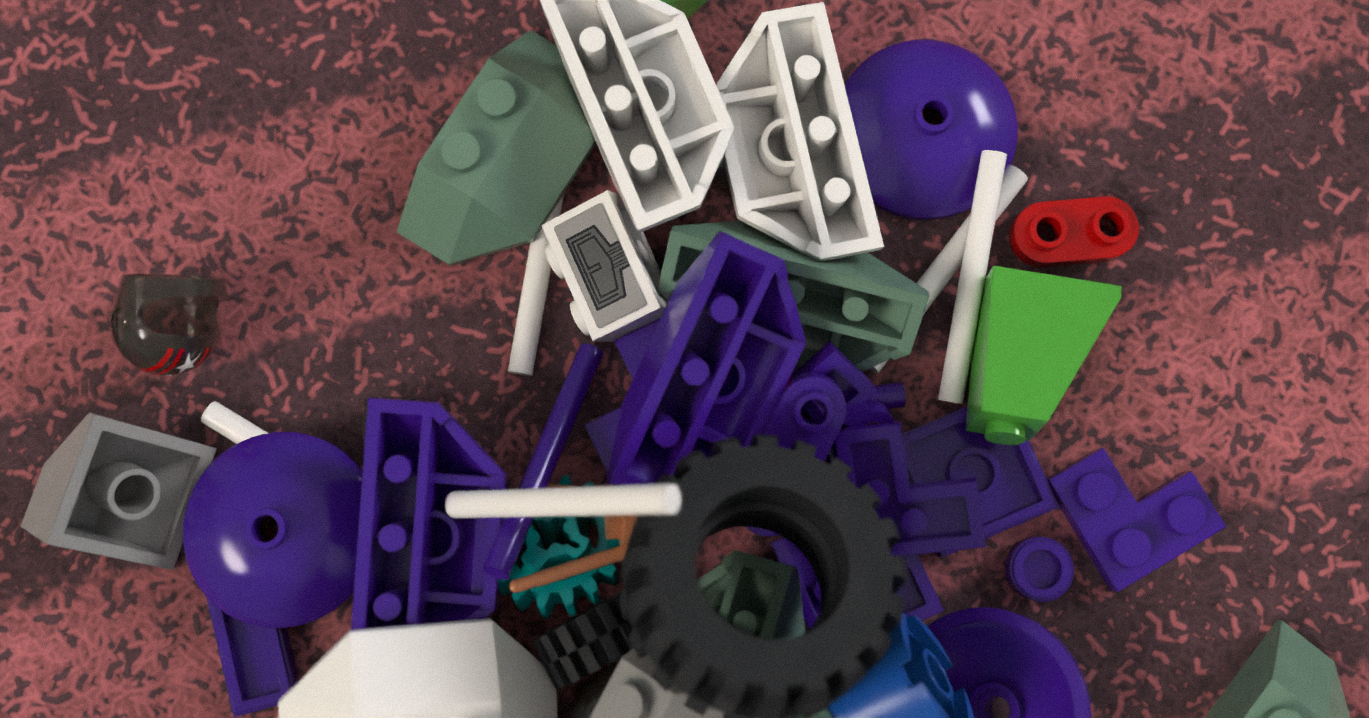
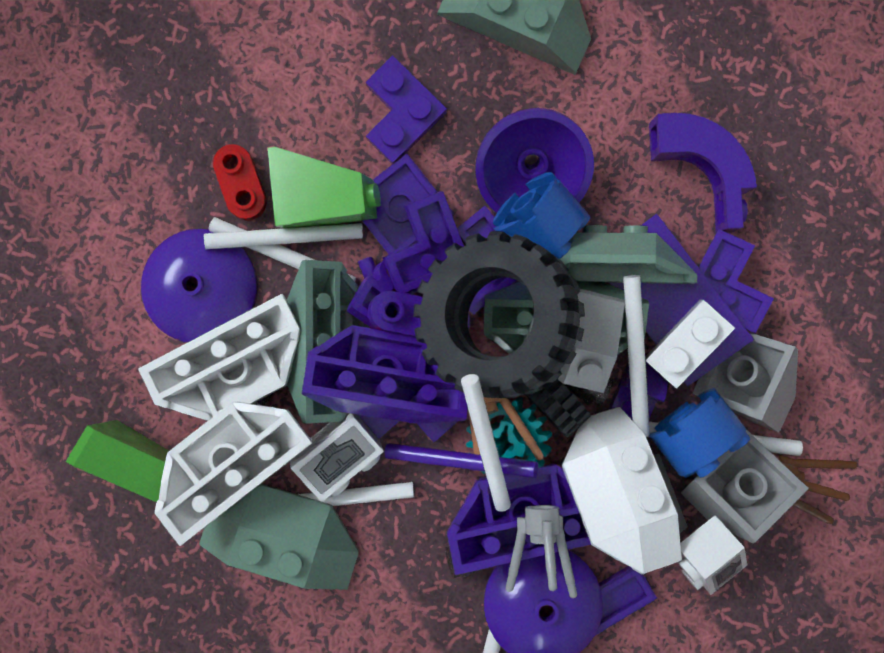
camera: 110 degrees left, 5 degrees up
(400, 560) = (545, 528): none -> light grey plant
(1039, 569) = (445, 156): dark purple tile -> none

